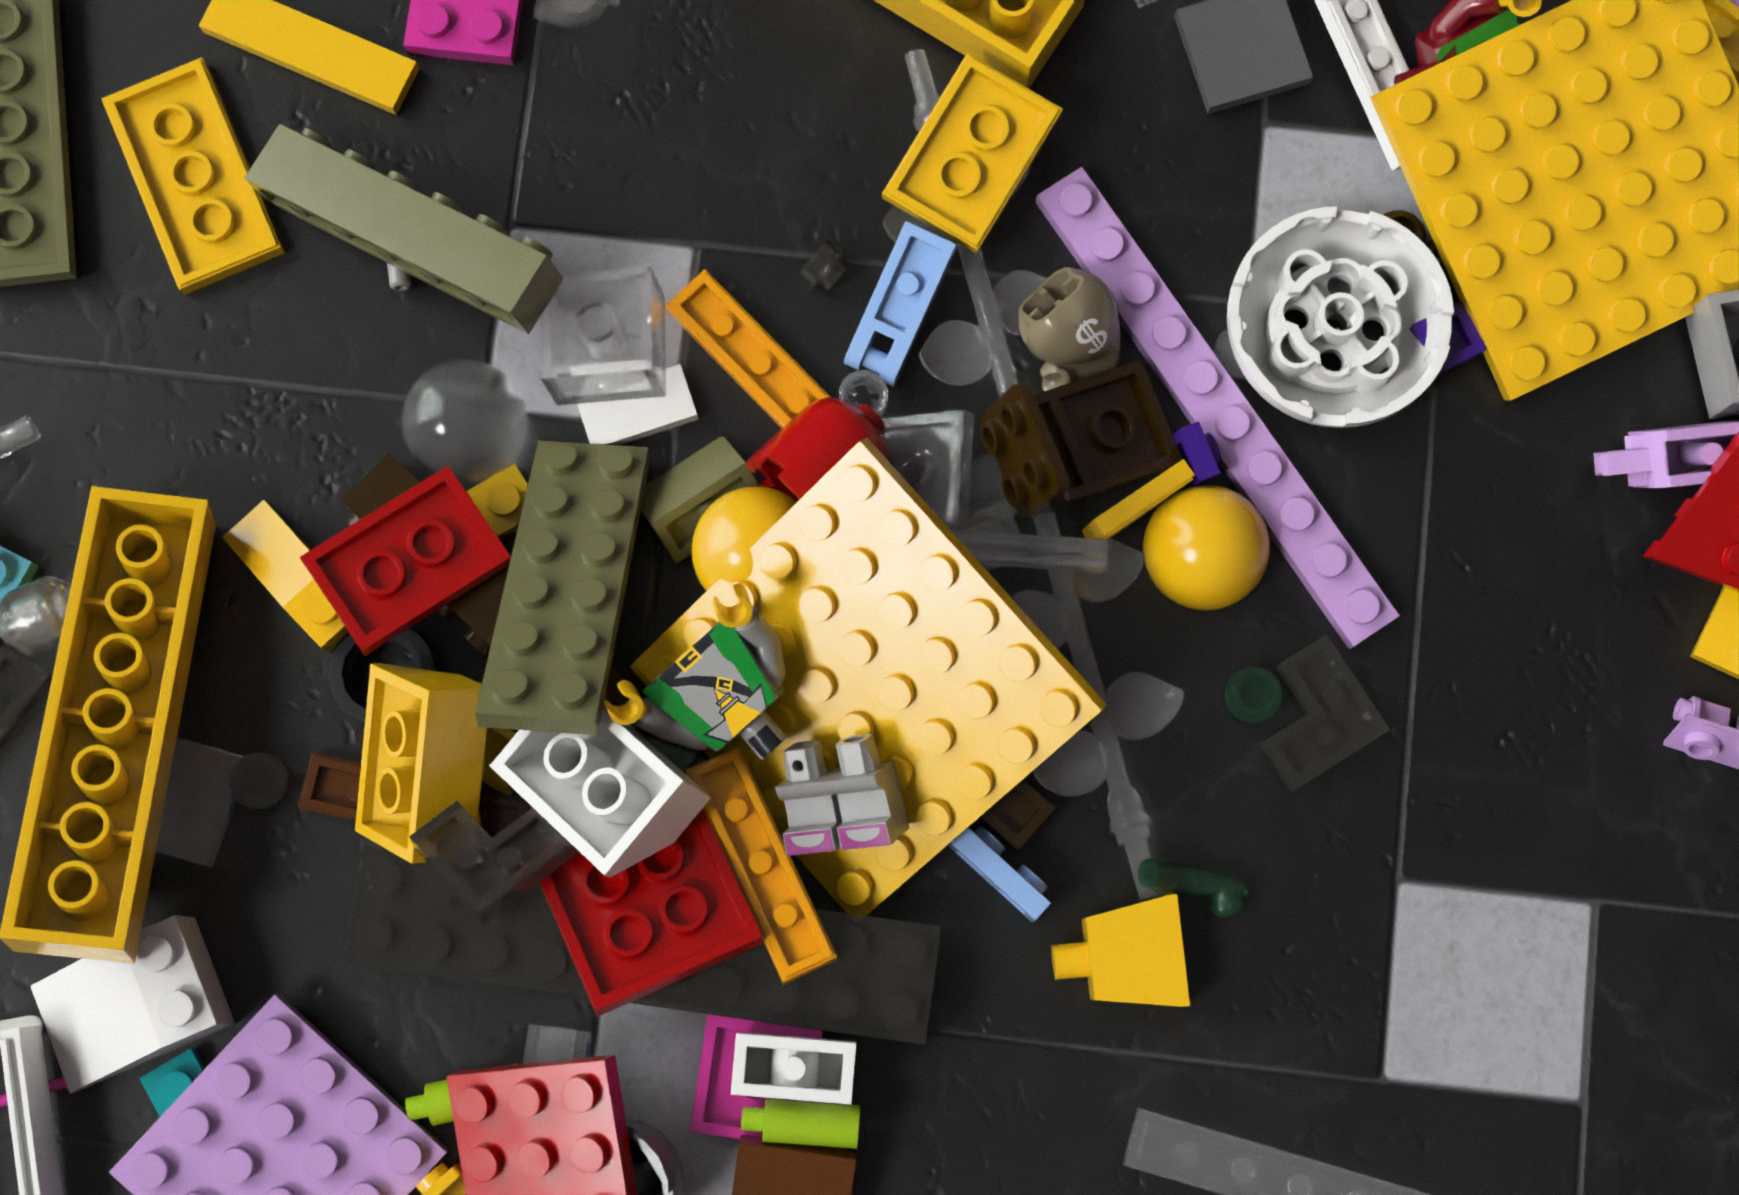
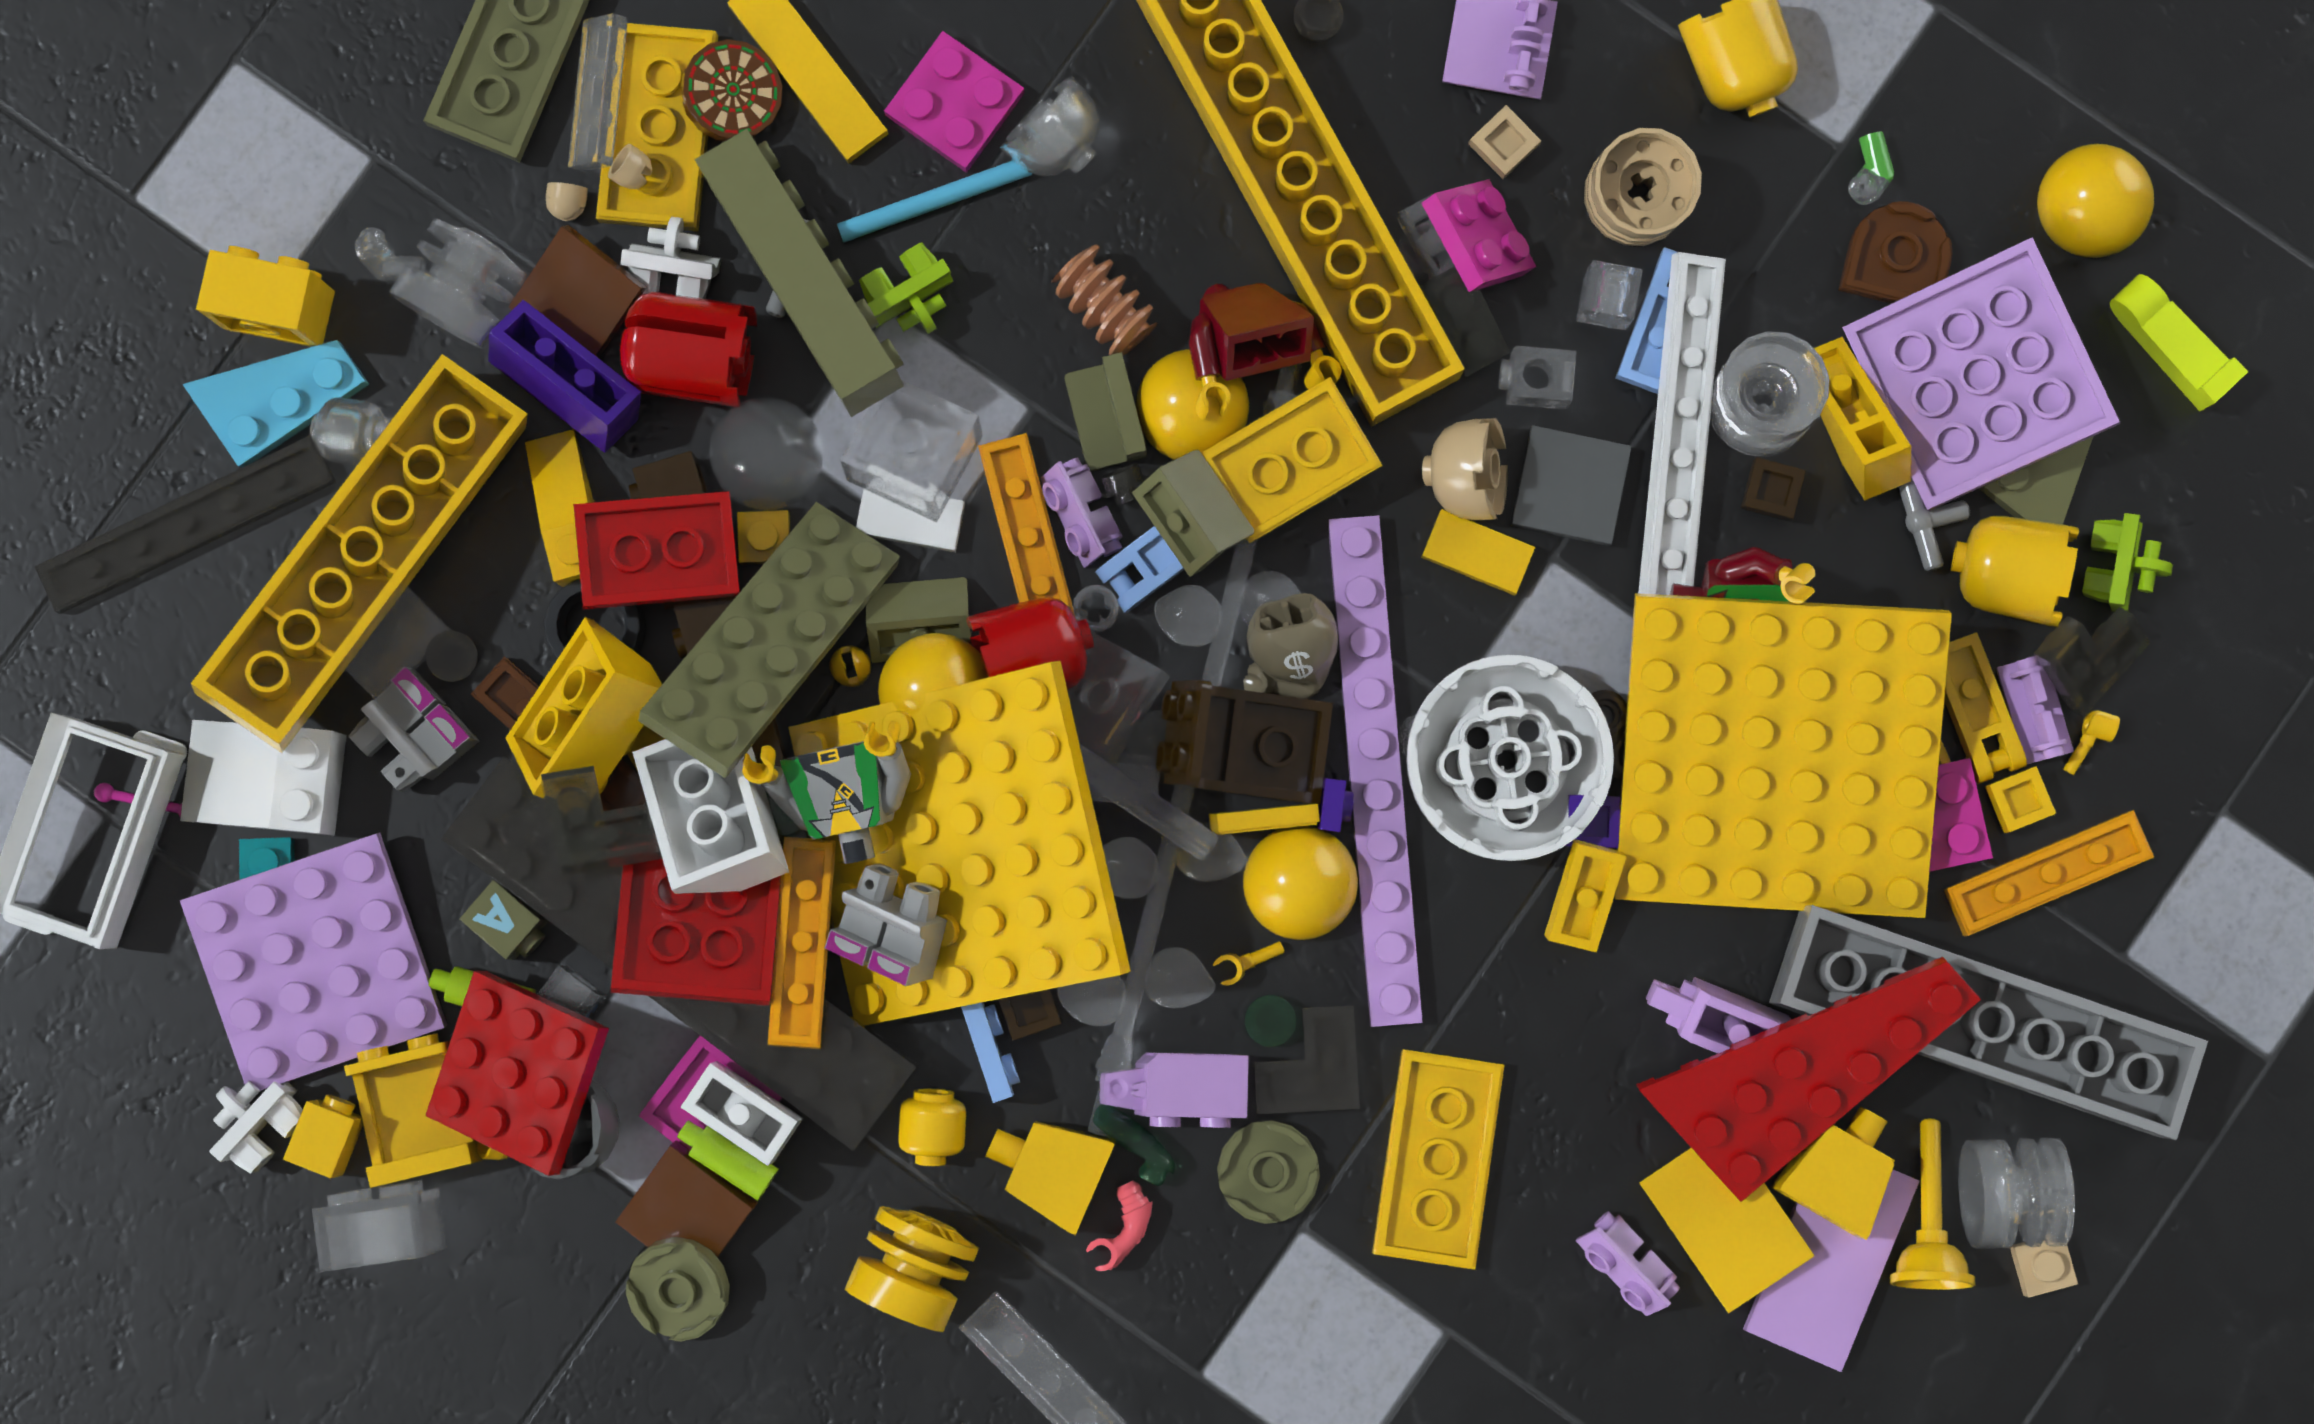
camera: 25 degrees right, 5 degrees up
(73, 414) = (458, 282): none -> clear wheel
(117, 171) = (597, 92): none -> clear tile
(139, 286) = (565, 200): none -> tan hinge
(187, 221) = (629, 166): none -> tan hinge
(199, 369) = (580, 290): none -> reddish brown tile
(225, 449) = (564, 376): none -> dark purple brick
(243, 99) = (731, 89): none -> reddish brown tile
(251, 304) = (692, 269): none -> white hips
(260, 866) = (417, 726): none -> light grey hips
(333, 356) = (688, 348): none -> red cylinder
(451, 1011) = (505, 922): none -> olive brick
(494, 105) = (931, 200): none -> medium azure bar
(528, 198) = (926, 279): none -> lime hips
(646, 585) = (861, 663): none -> yellow hinge
(711, 107) = (1103, 302): none -> nougat piece
(772, 210) = (1106, 414): none -> olive panel
(776, 302) = (1068, 491): none -> lavender hinge
(845, 159) = (1168, 408): none -> yellow piece
(869, 56) = (1249, 334): none -> dark red torso
(907, 246) = (1192, 511): none -> olive panel
(986, 978) = (932, 1126): none -> yellow head
(1048, 1130) = (912, 1268): none -> yellow wheel
(1140, 77) = (1468, 469): none -> tan cylinder
(1192, 152) = (1478, 552): none -> yellow tile
(1200, 648) = (1249, 960): none -> yellow hand
(1207, 802) = (1181, 1086): none -> lavender hinge
(1235, 958) = (1136, 1217): none -> coral piece
(1335, 842) = (1268, 1171): none -> olive tile
(1483, 410) = (1585, 895): none -> yellow plate
(1489, 739) = (1438, 1159): none -> yellow tile

